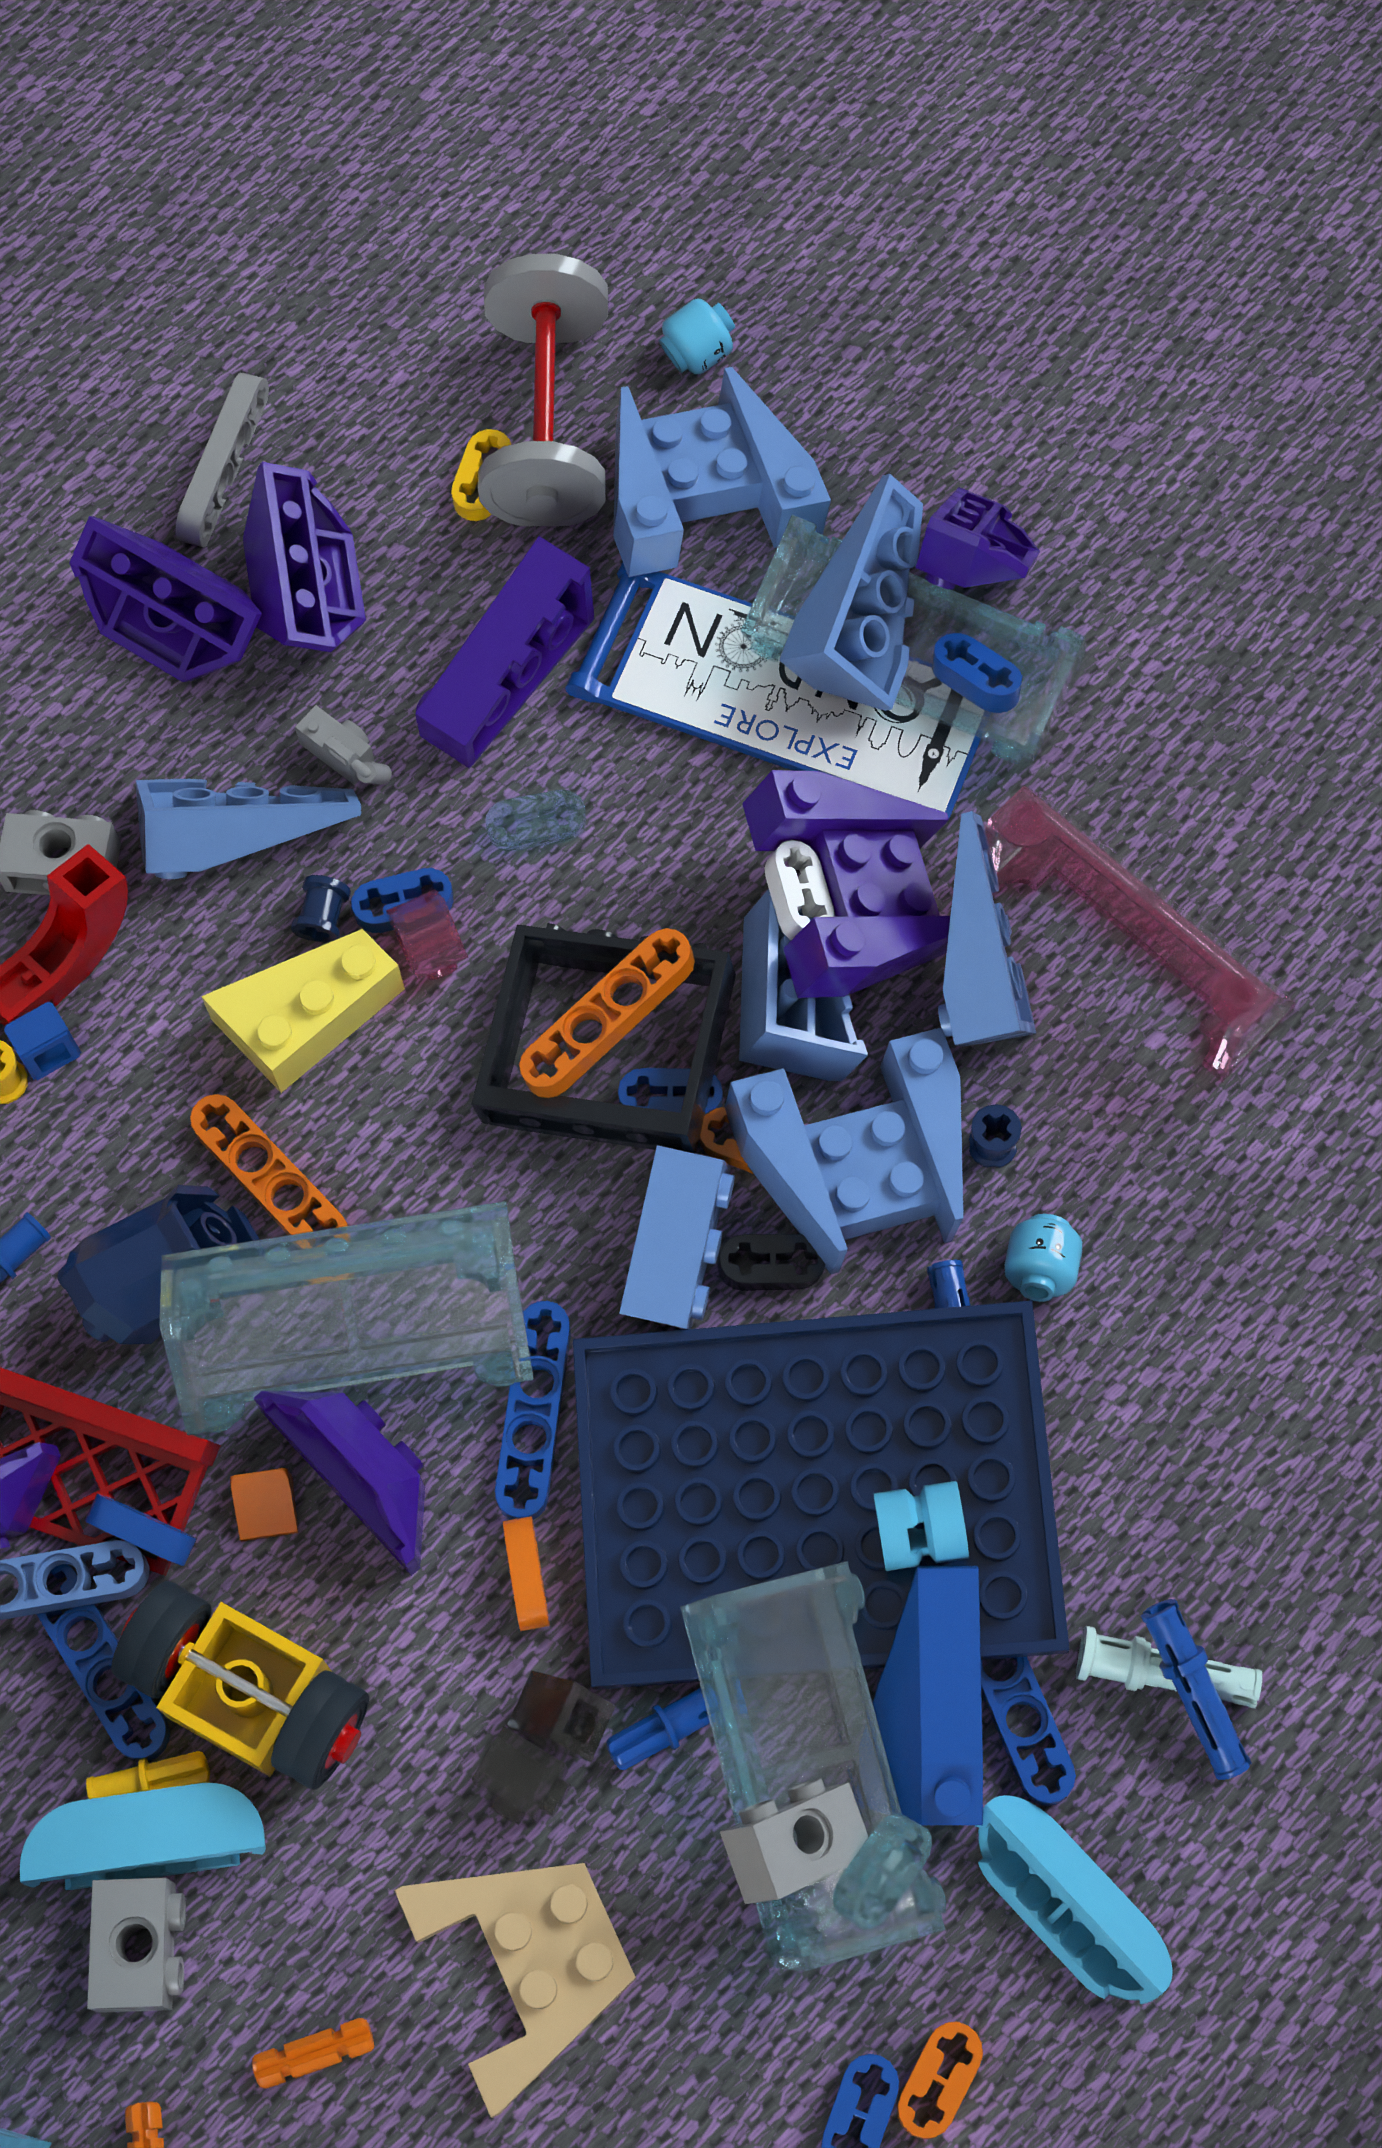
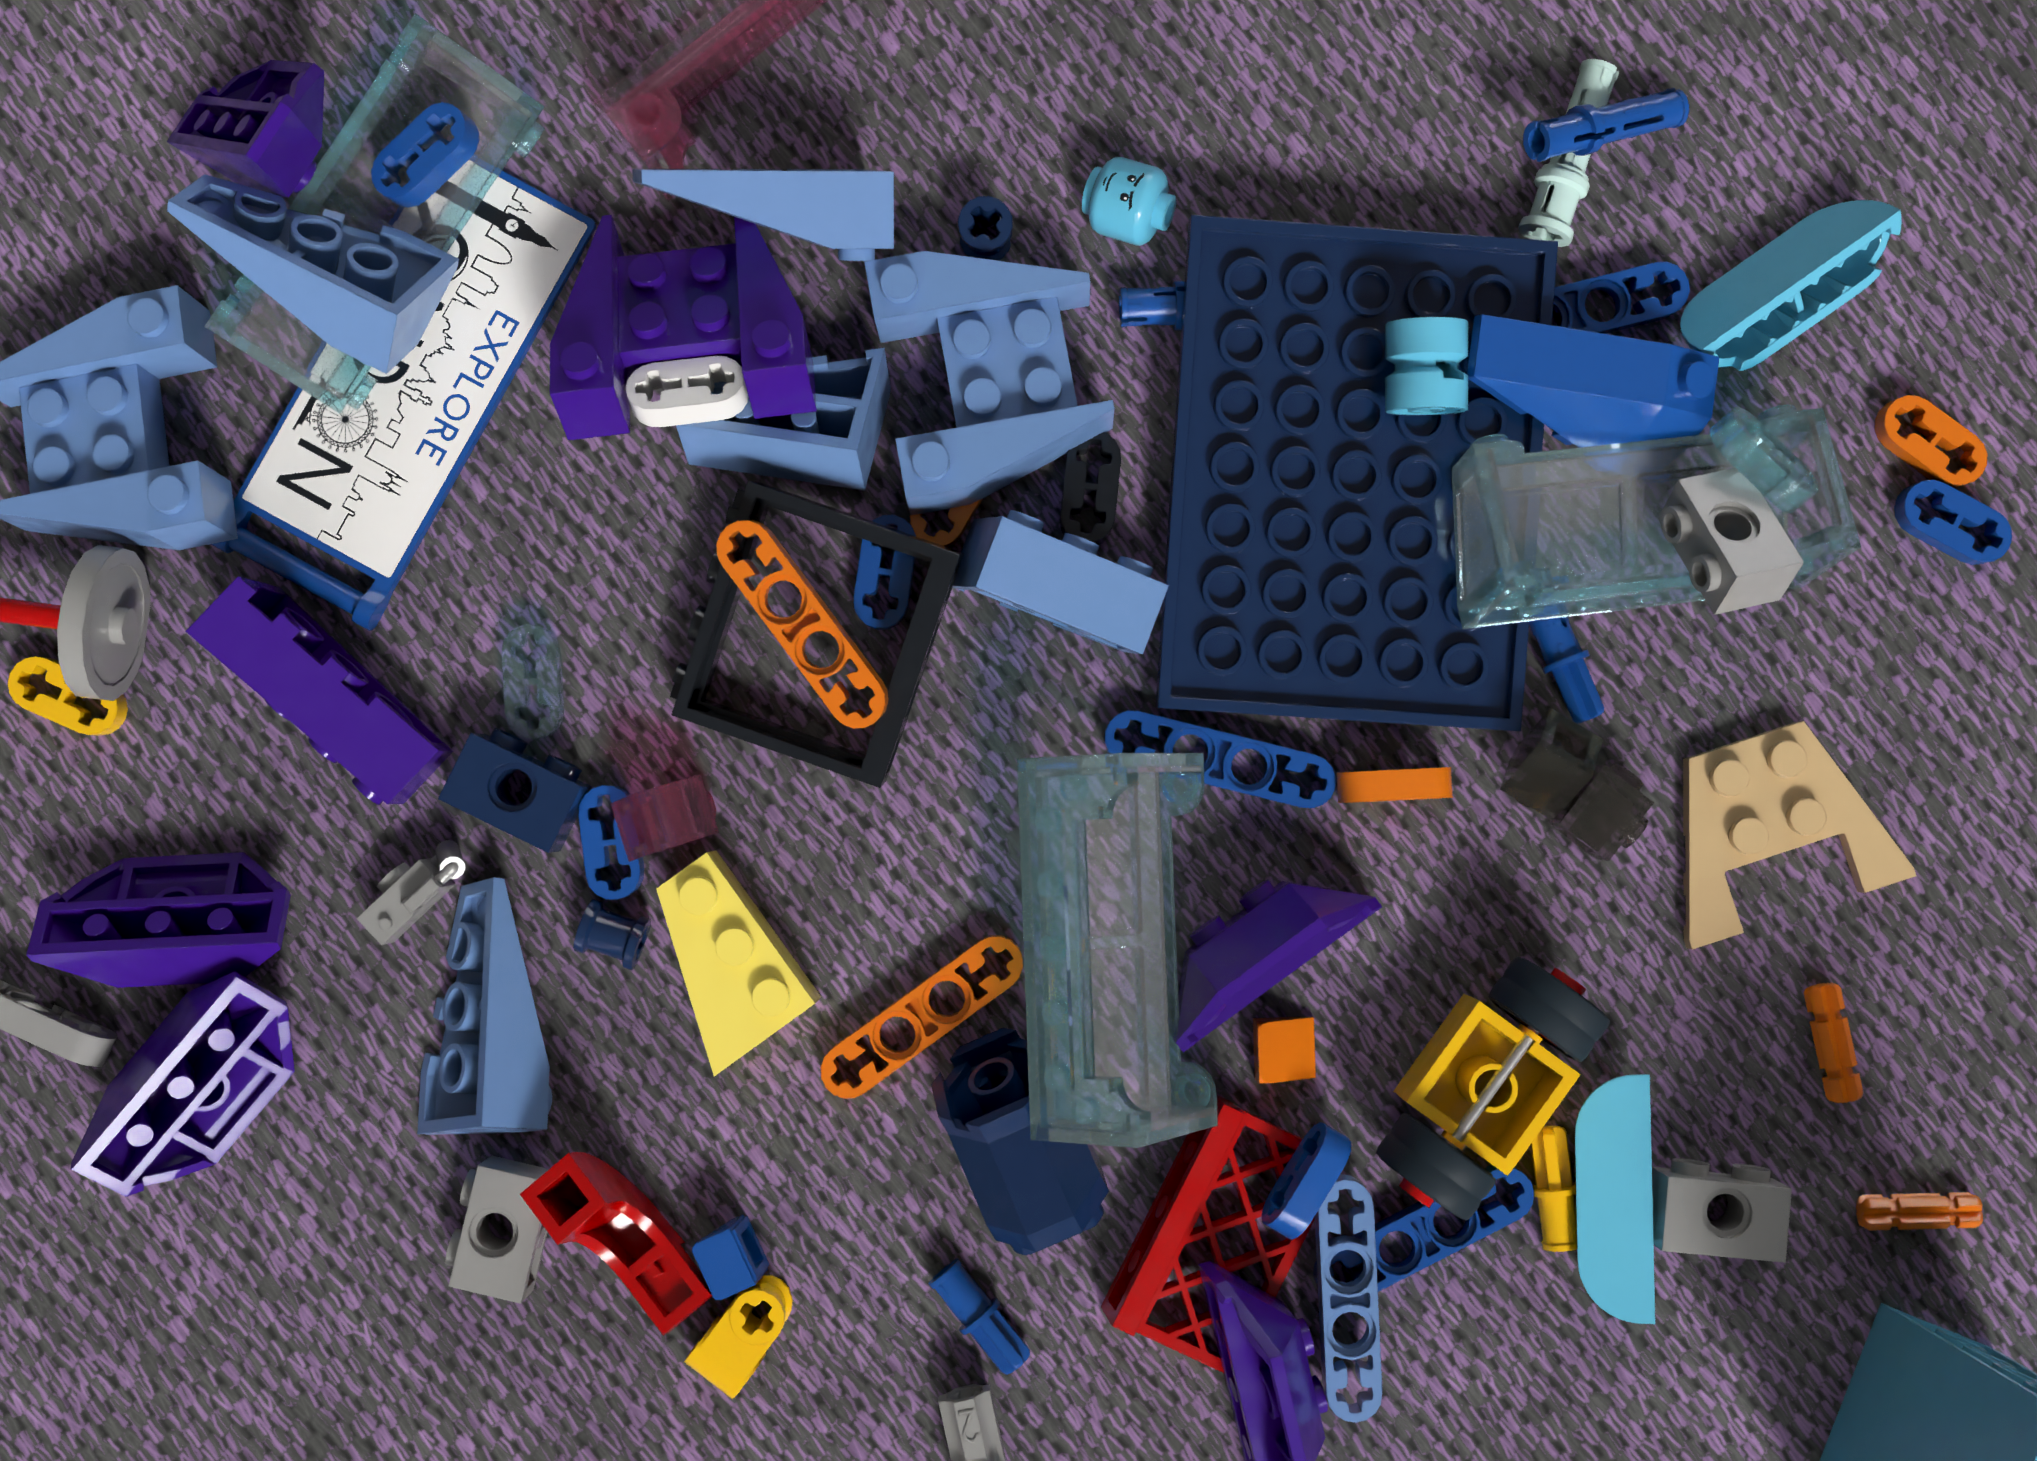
camera: 85 degrees left, 20 degrees up
(439, 789) = (480, 789): none -> dark blue brick

